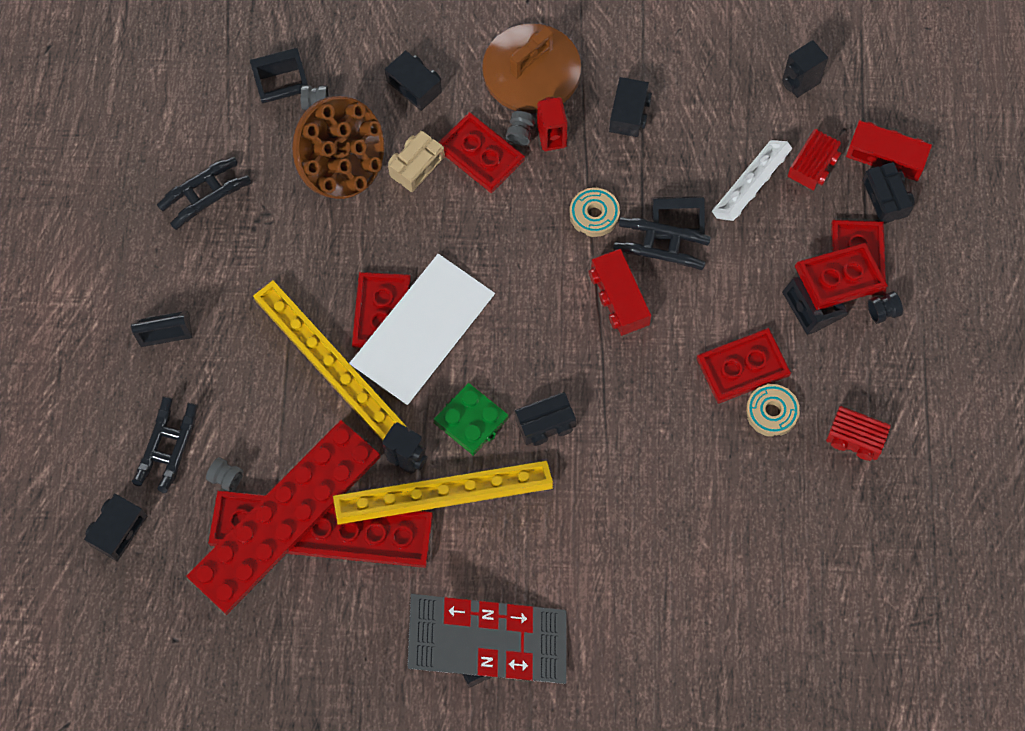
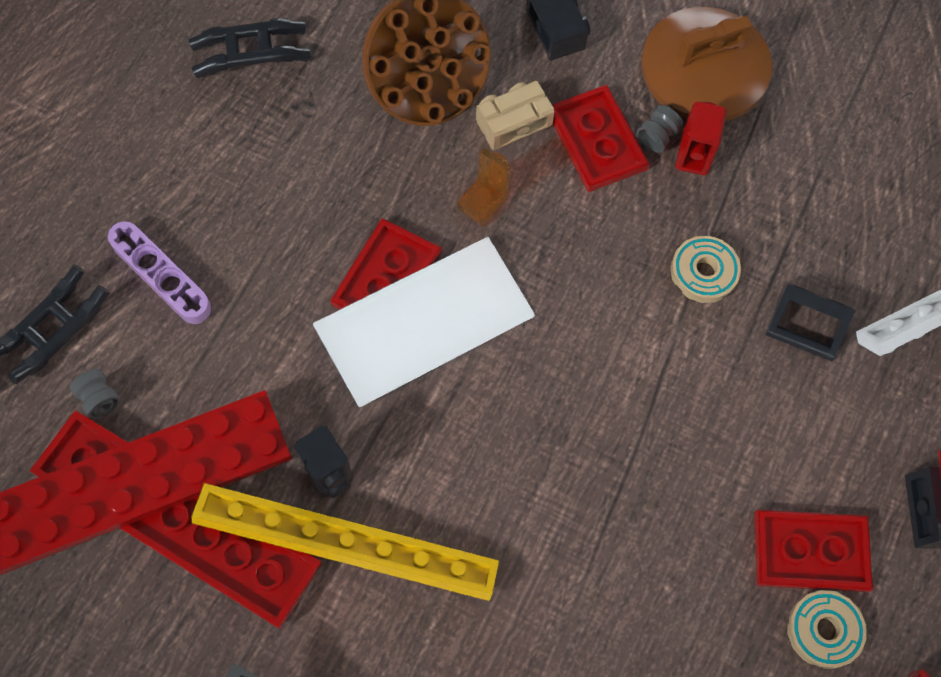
camera: 20 degrees right, 0 degrees up
(162, 329) = (116, 184): black tile -> none
(222, 378) = (159, 272): none -> lavender beam
(327, 359) = (291, 311): yellow plate -> none
(423, 220) = (489, 190): none -> clear orange bracket
(471, 419) = (429, 461): green plate -> none
(545, 419) = (522, 505): black brick -> none
(619, 292) = (692, 384): red brick -> none
(629, 106) = (806, 159): black brick -> none
(676, 235) = (780, 365): black piece -> none

